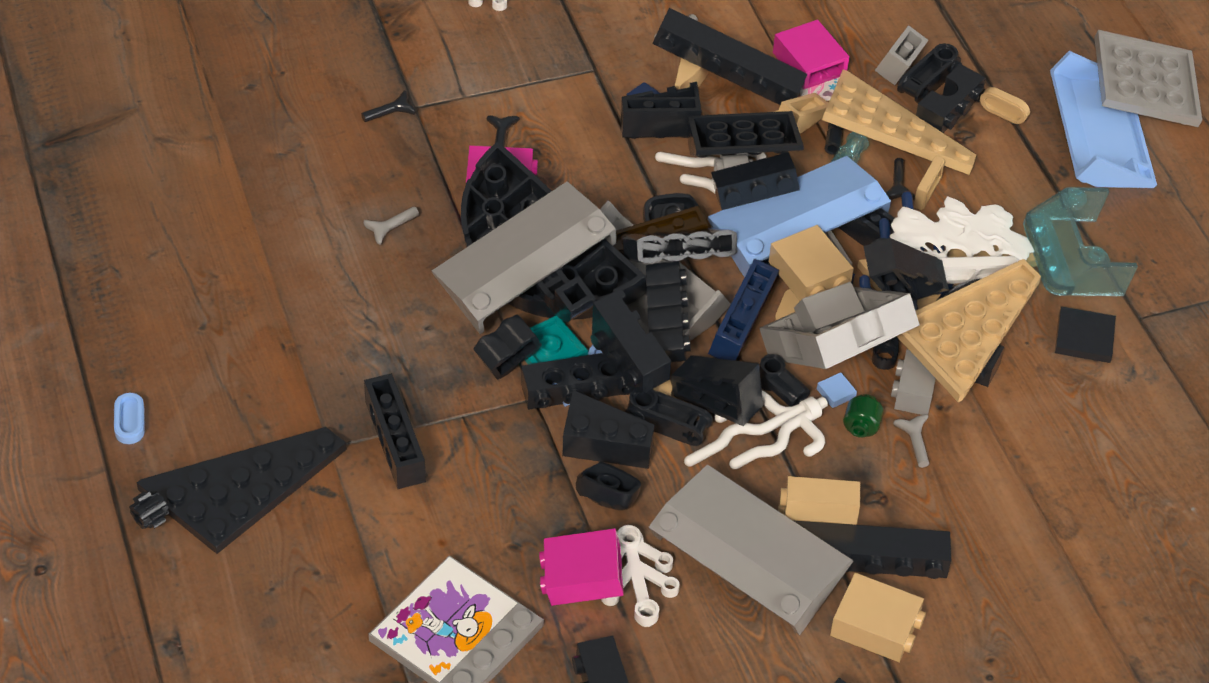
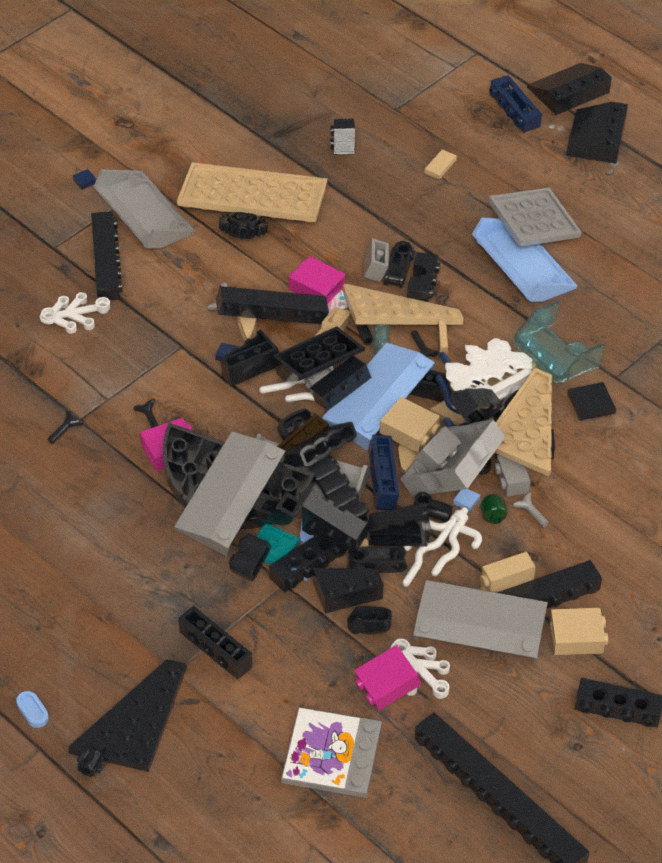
camera: 25 degrees left, 0 degrees up
(382, 228) = (113, 512): light grey piece -> none
(1004, 105) = (458, 269): tan tile -> none

